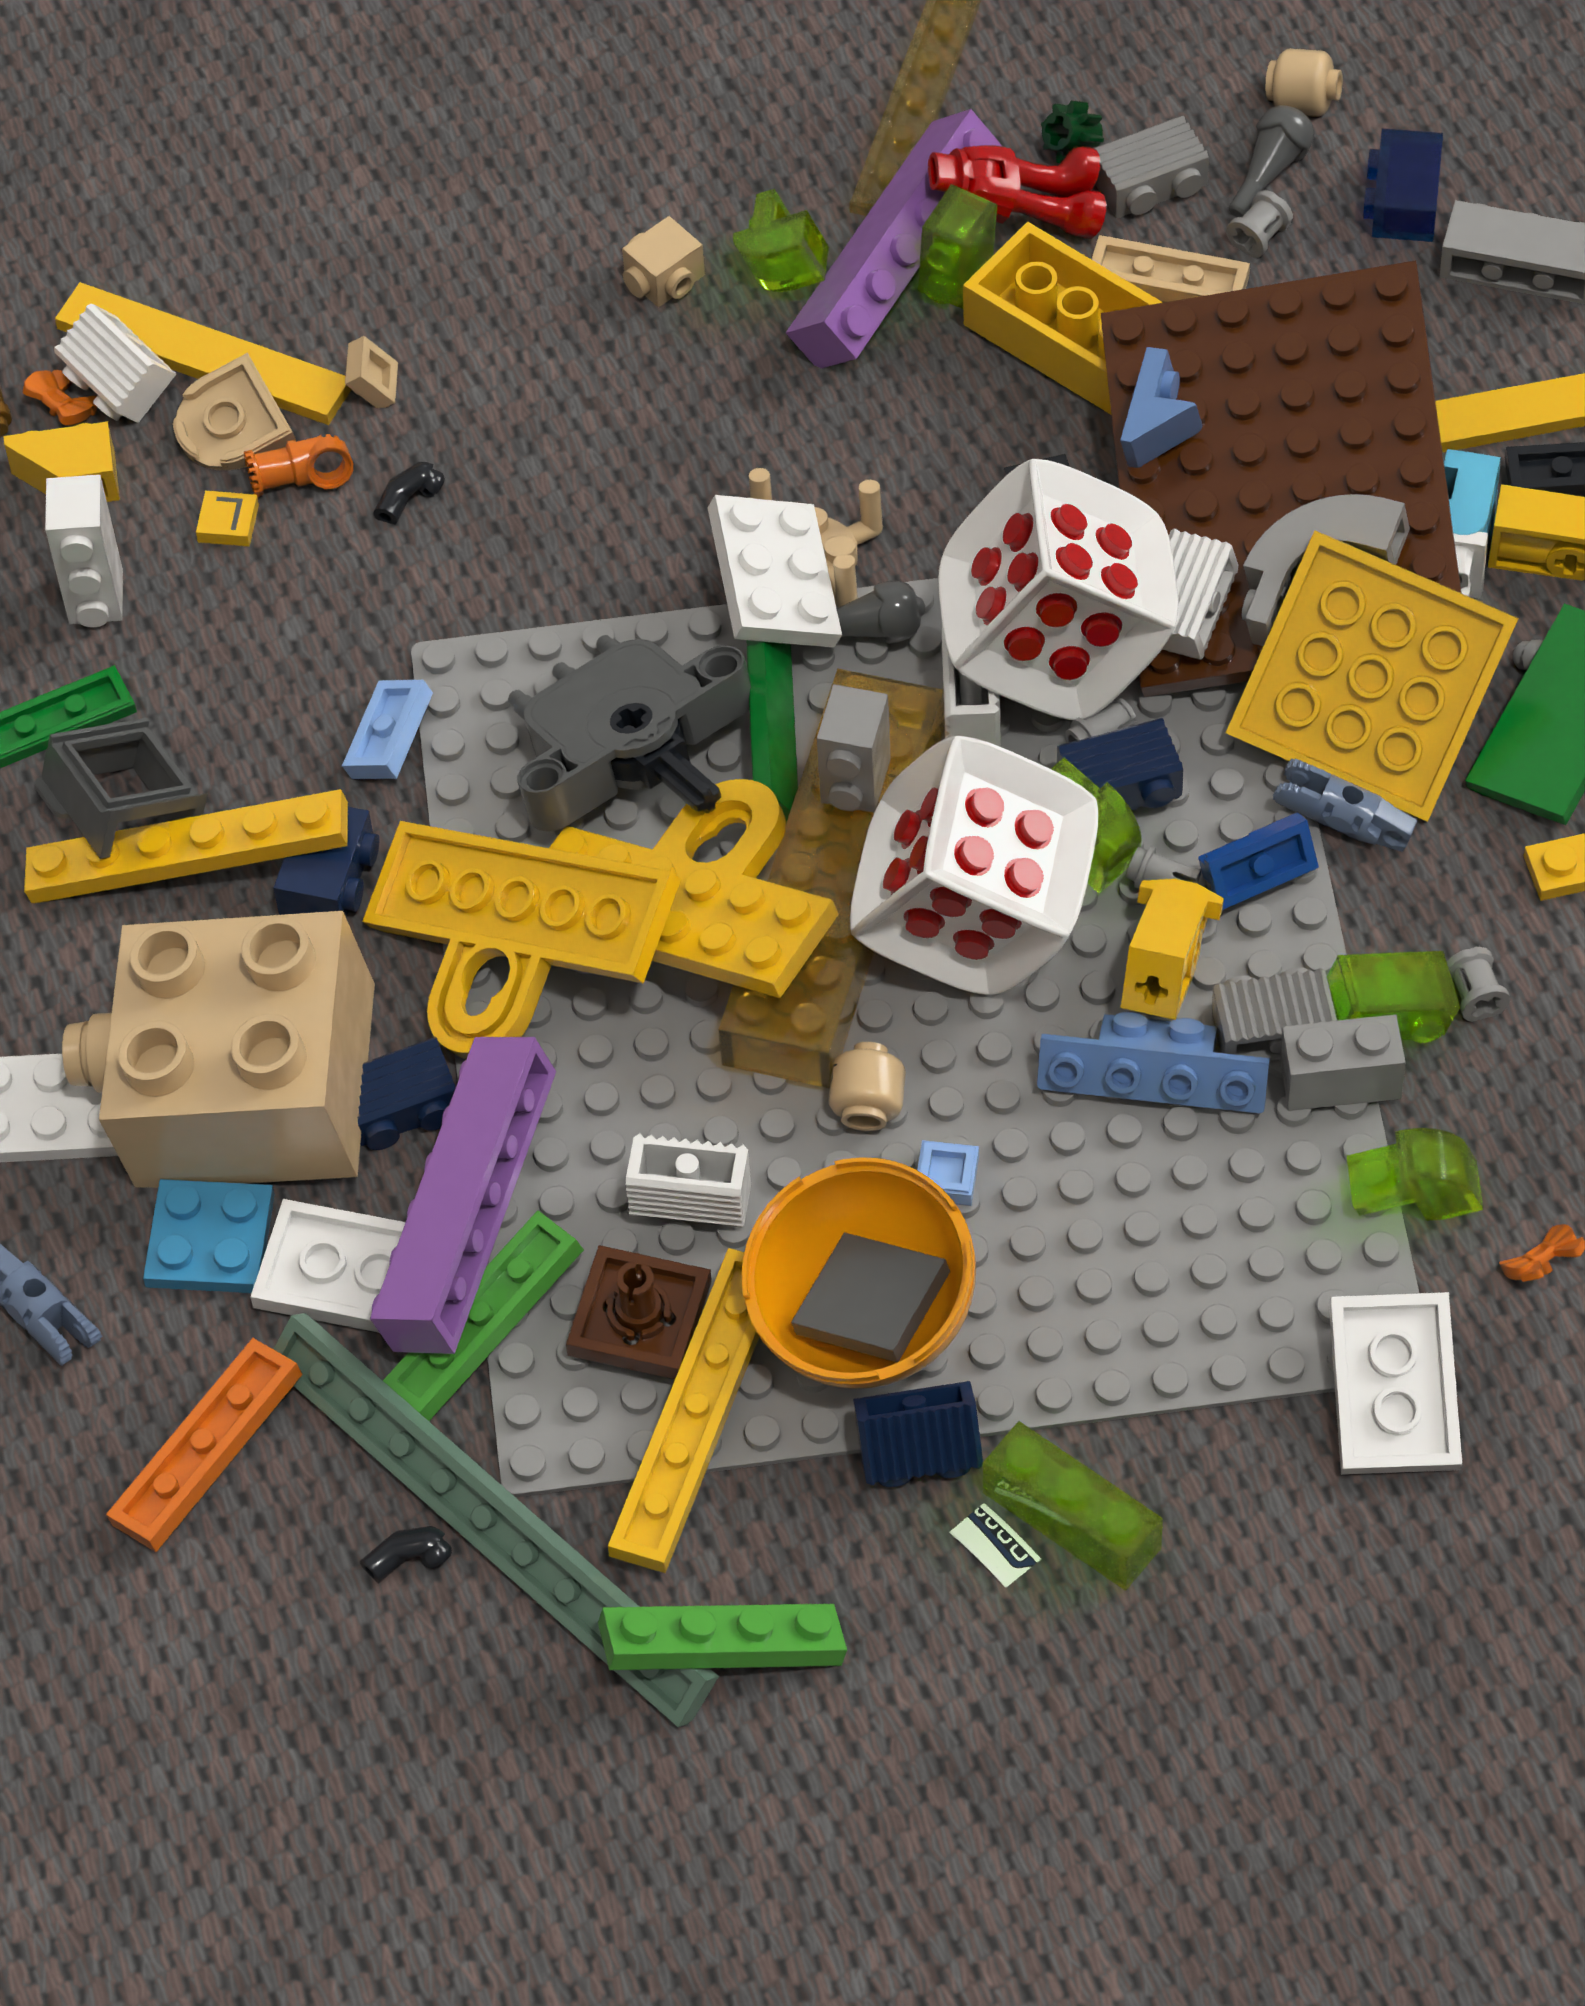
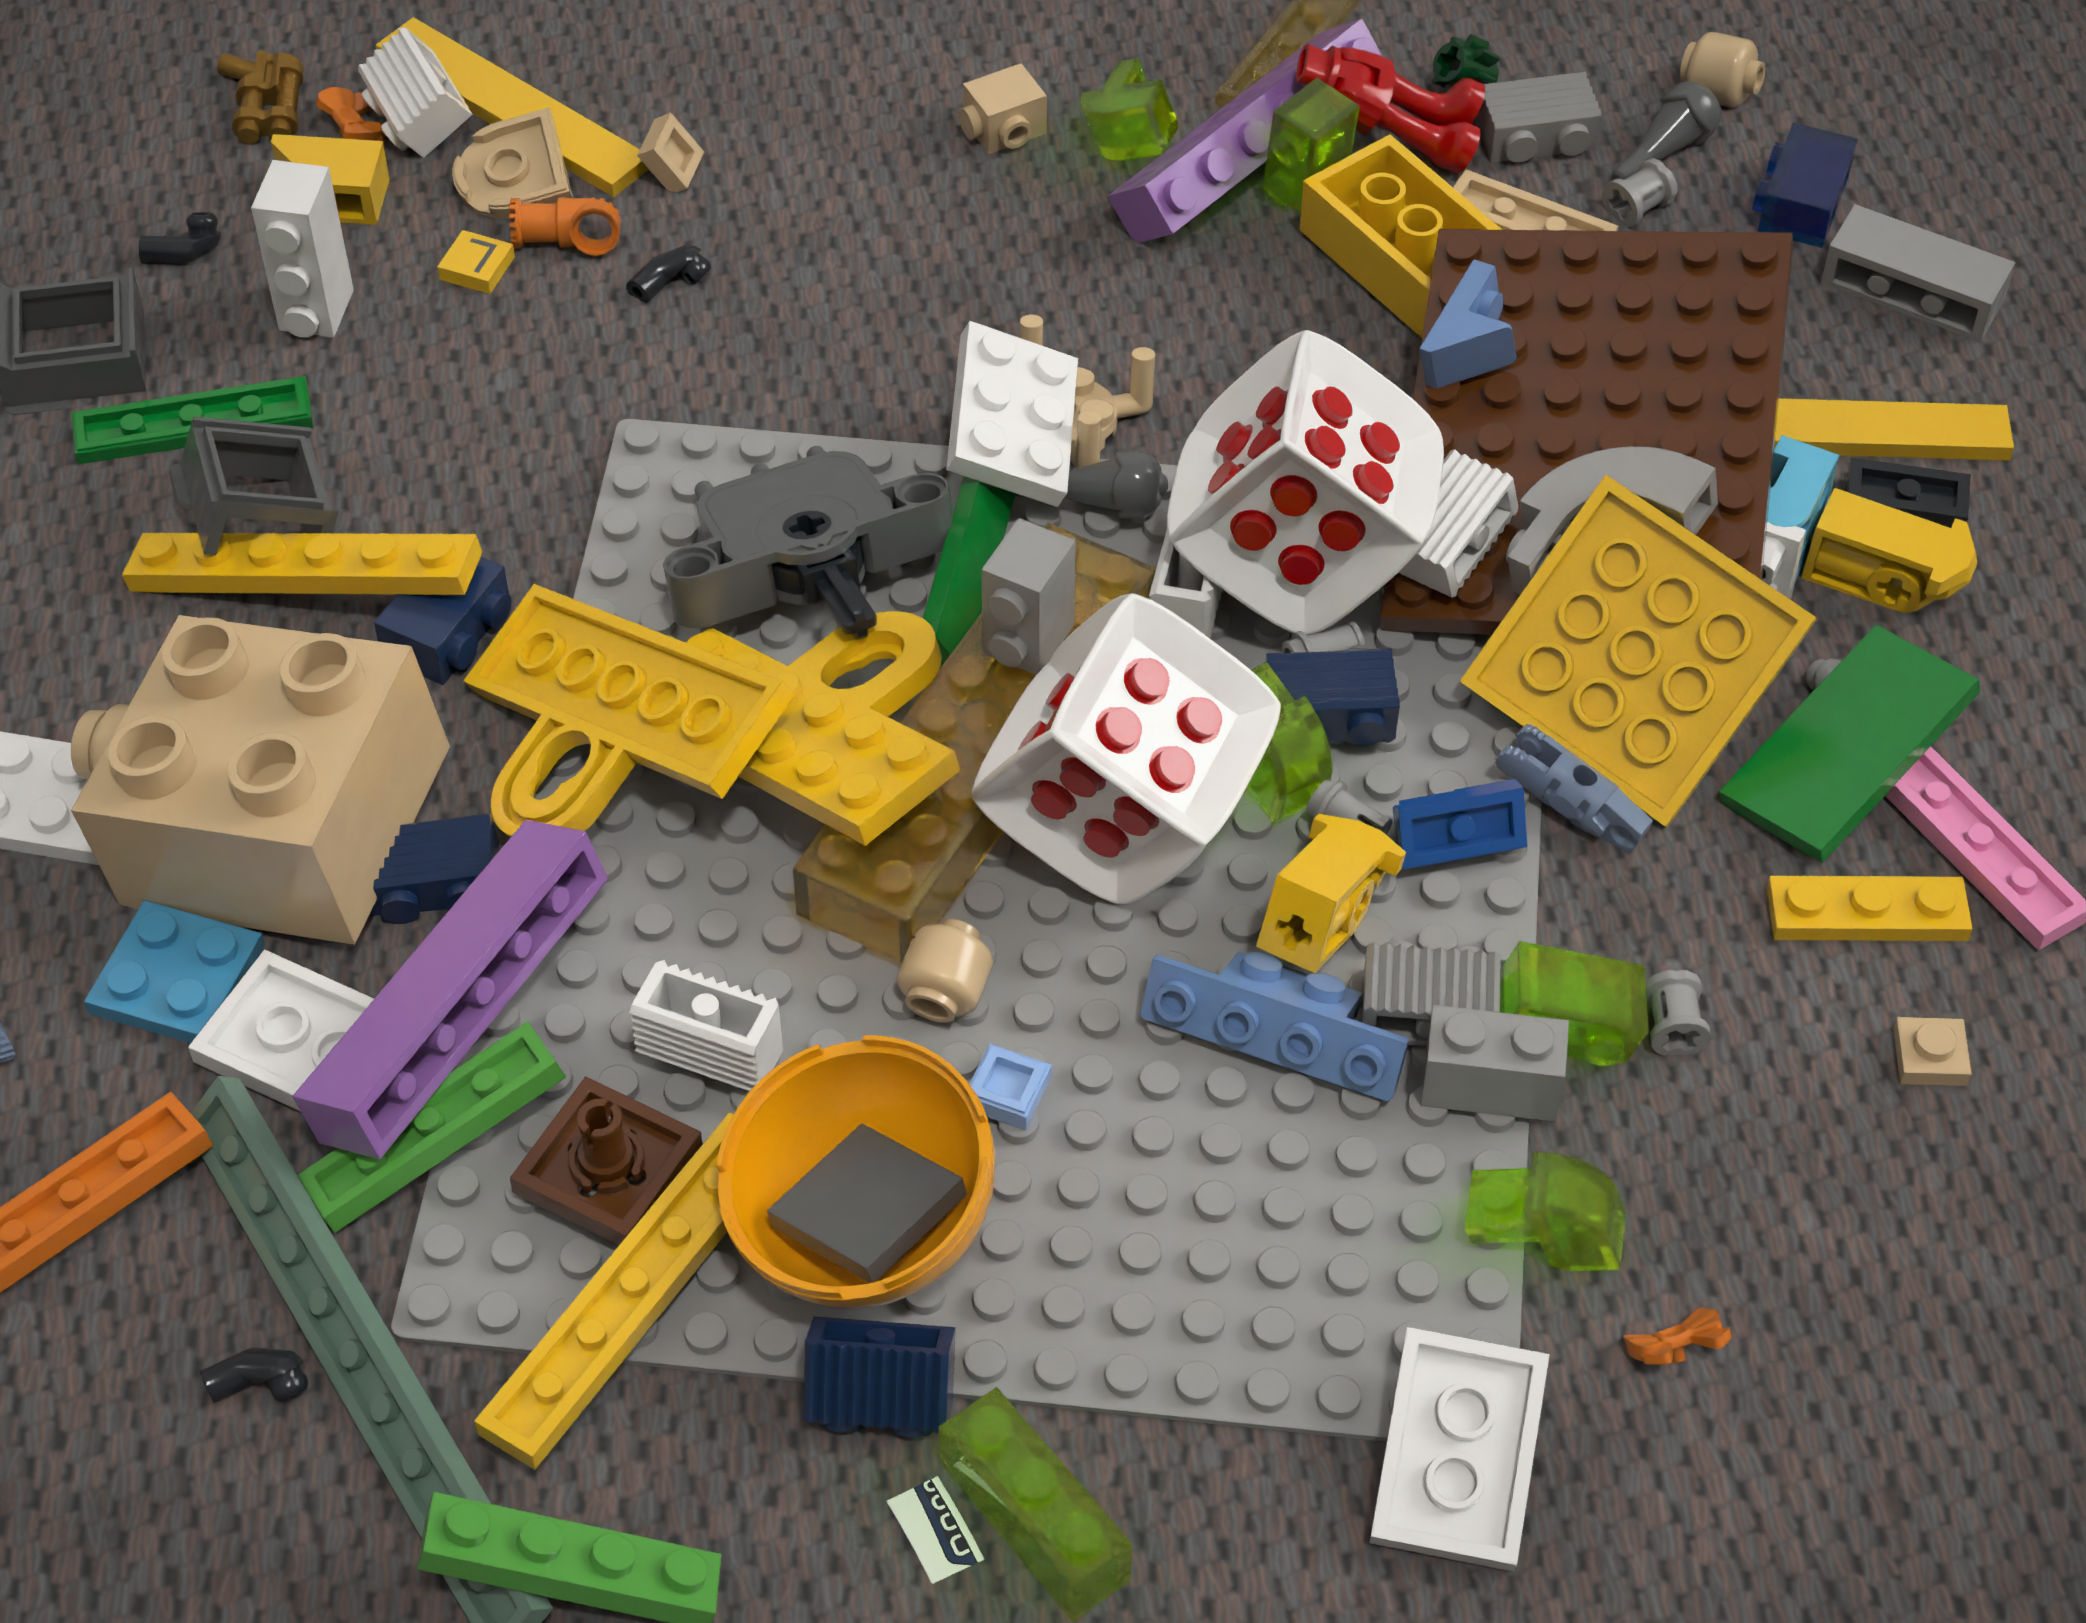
camera: 10 degrees right, 5 degrees down
(387, 729) = (560, 494): light blue plate -> none

